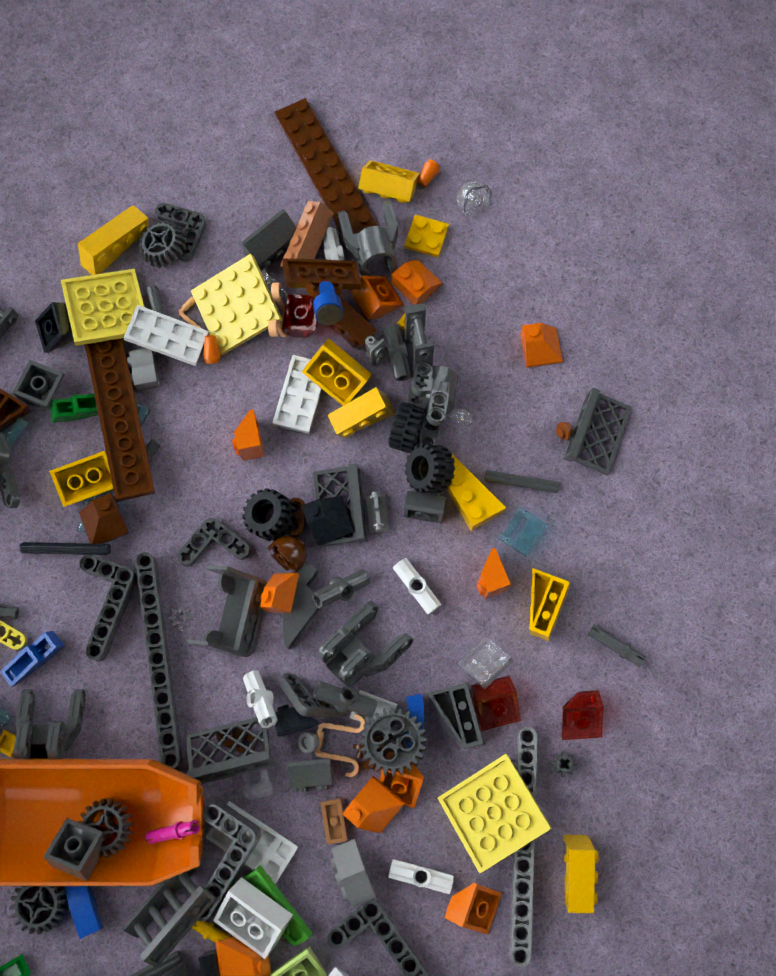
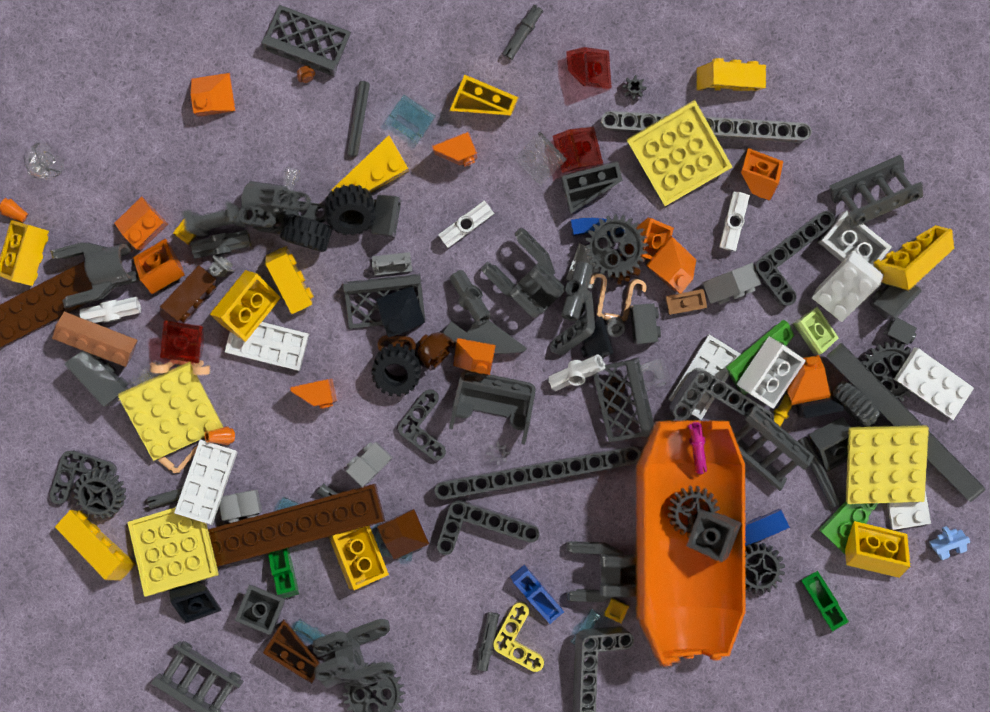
camera: 90 degrees left, 15 degrees up
(65, 548) = (430, 570): black axle -> none
(171, 484) = (368, 465): none -> light grey brick
(324, 282) = (148, 318): reddish brown plate -> none
(426, 236) = (86, 213): yellow plate -> none

